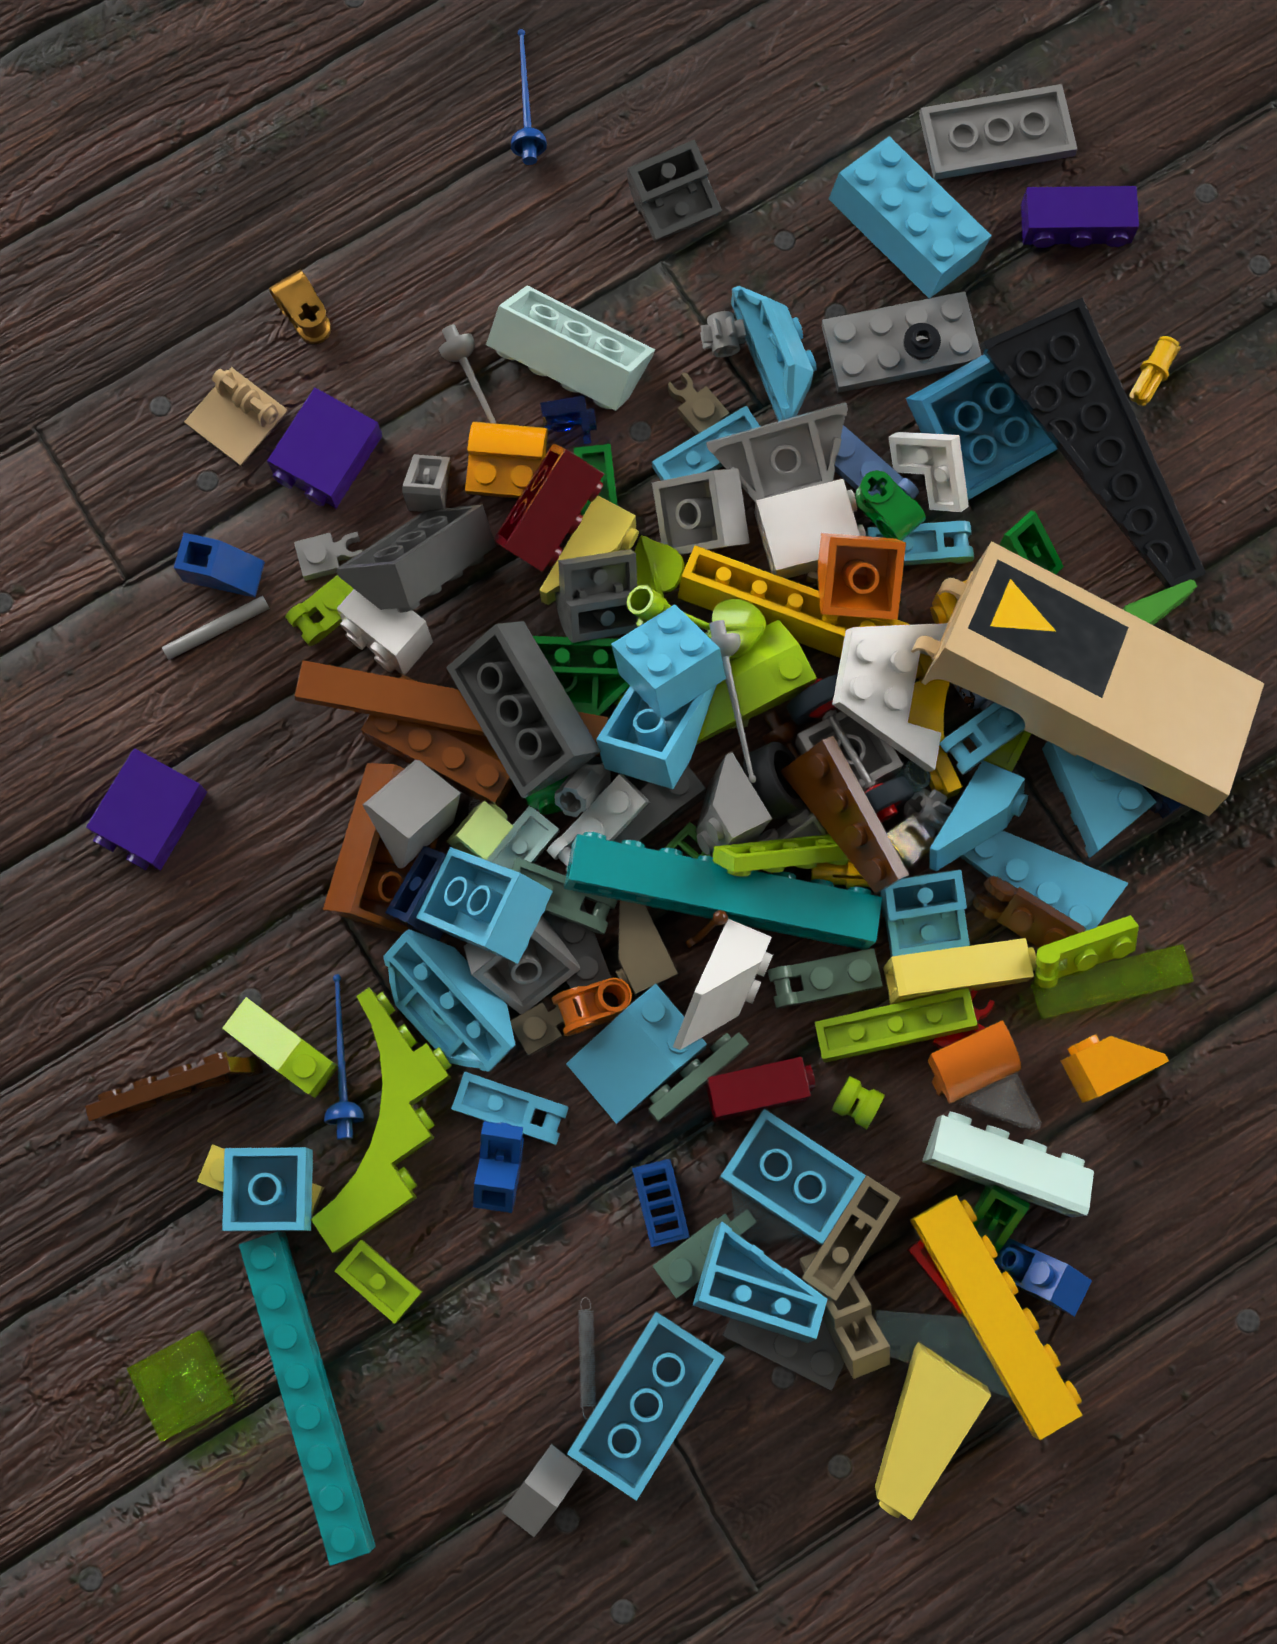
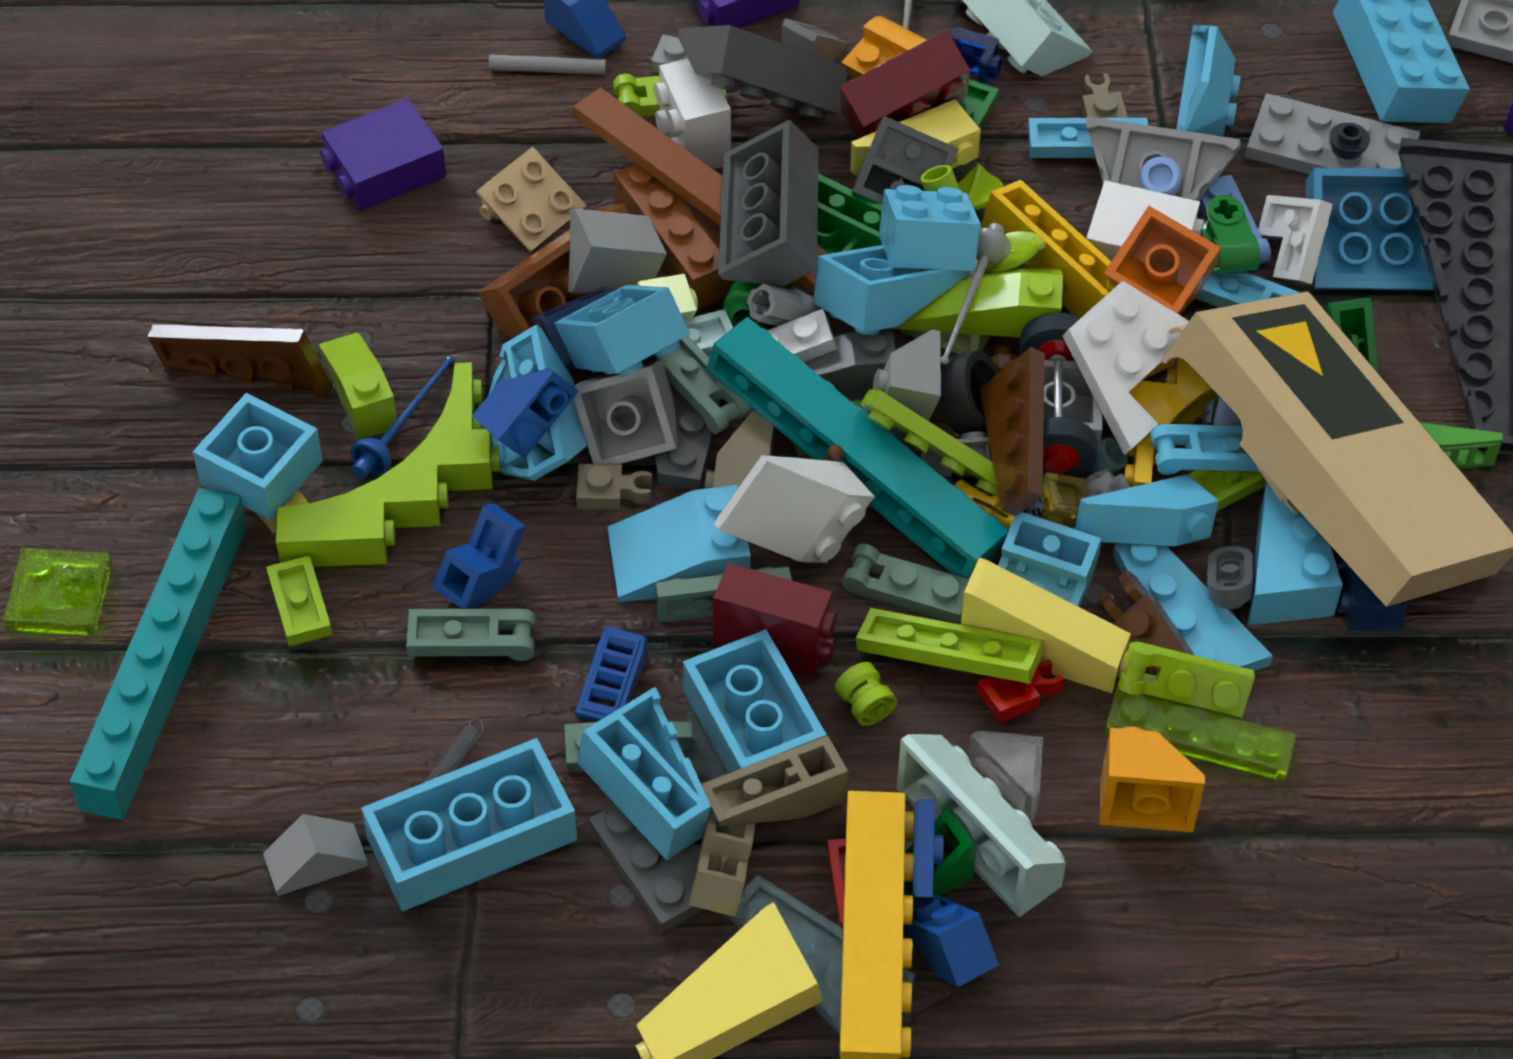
camera: 30 degrees right, 25 degrees down
(299, 784) = (529, 199): none -> tan hinge
(452, 1028) = (525, 408): none -> blue slope
(505, 1104) = (539, 534): medium azure plate -> none
(527, 1229) = (471, 632): none -> sand green plate
(584, 1005) = (665, 478): orange piece -> none
(701, 511) = (1053, 162): light grey slope -> none
(723, 334) = (1162, 59): light grey gear -> none
(798, 470) = (1161, 176): none -> light blue tile
(974, 1062) = (1004, 697): orange brick -> none
(997, 1229) = (927, 848): none -> blue plate
(1064, 835) = (1230, 576): none -> dark grey plate

